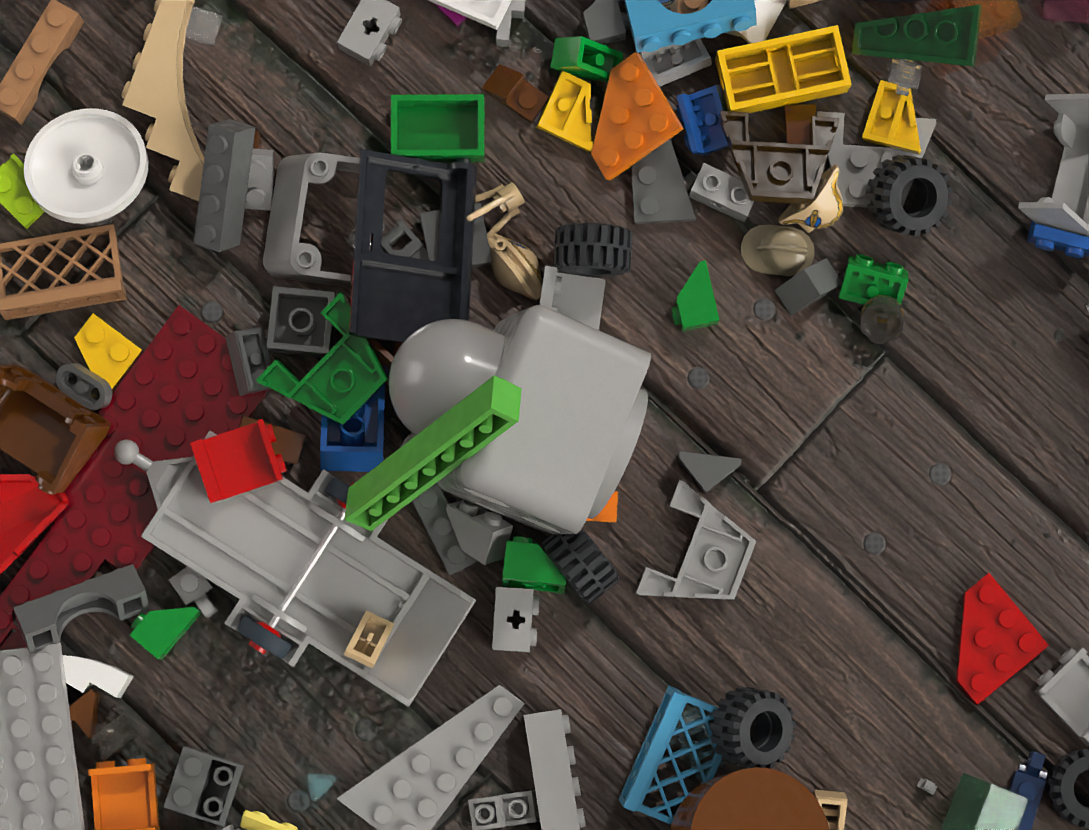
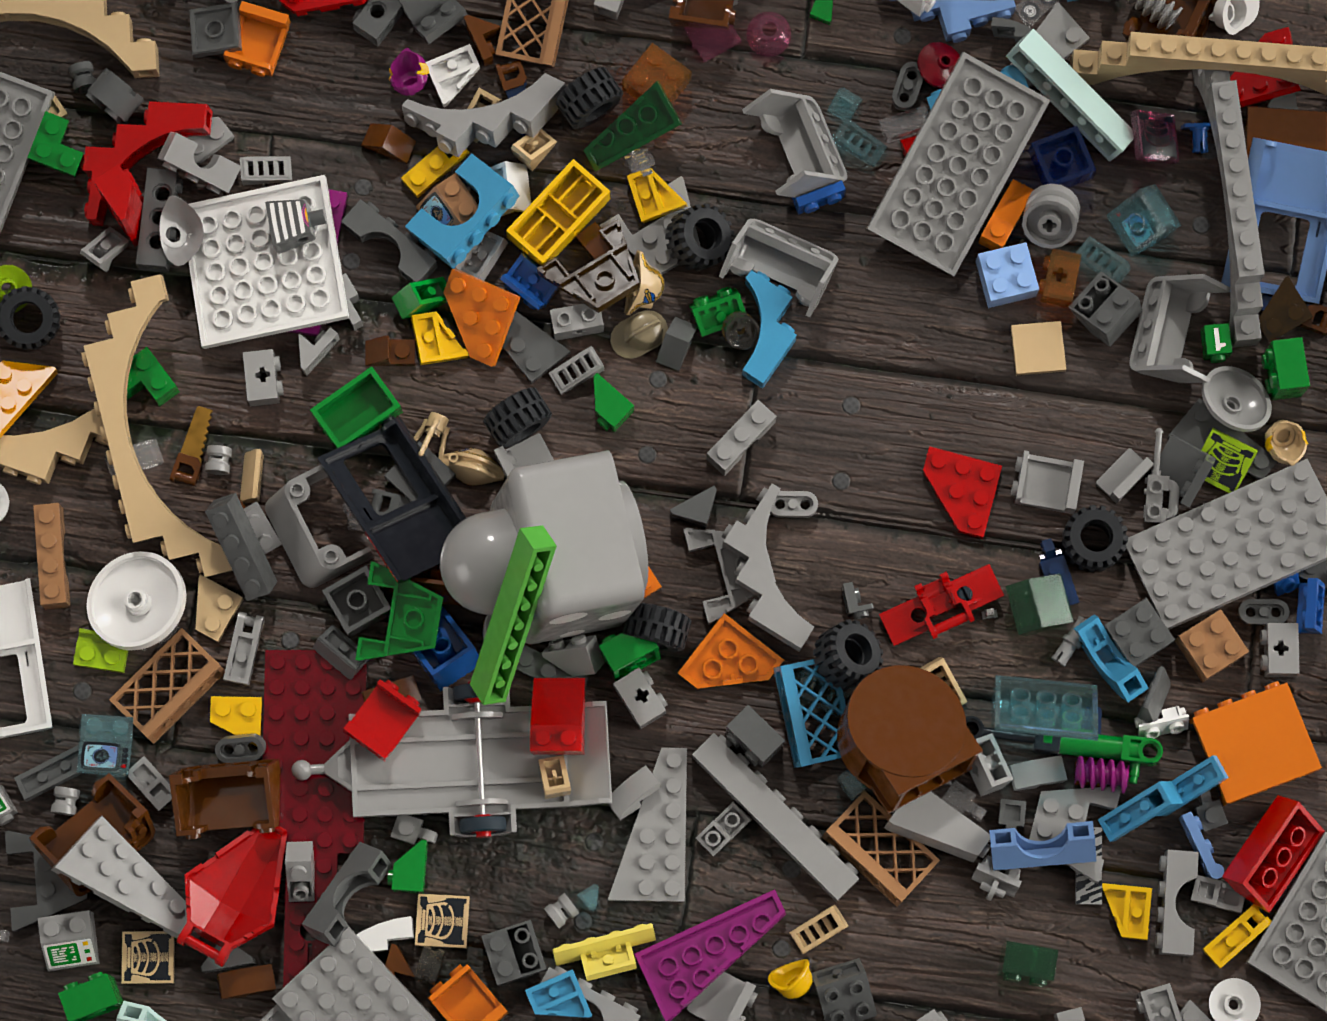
camera: 35 degrees left, 5 degrees down
(52, 552) = (300, 871): none -> light grey slope
(158, 288) = (243, 649): none -> light grey plate
(159, 228) = (215, 608): none -> tan wing
(159, 701) = (442, 921): none -> tile
(252, 51) = (192, 448): none -> piece
(262, 86) = (218, 460): none -> light grey wheel
(275, 776) = (555, 913): none -> light grey wheel
(290, 121) = (252, 476): none -> tan slope
(416, 581) = (557, 716): none -> red slope
(434, 41) = (312, 354): none -> light grey slope
(439, 708) = (633, 790): none -> light grey slope
(598, 743) = (754, 737): none -> dark grey brick
(632, 642) = (729, 657): none -> orange plate
(699, 254) = (571, 363): none -> light grey slope
(708, 626) = (749, 542): none -> light grey arch
(798, 671) = (851, 599): none -> dark grey bracket
(804, 428) = (740, 436): none -> light grey arch
(807, 533) = (792, 503): none -> light grey plate
(888, 733) = (938, 597): none -> red piece
(911, 351) = (774, 338): none -> dark azure arch
(978, 277) = (782, 259): none -> light grey windscreen

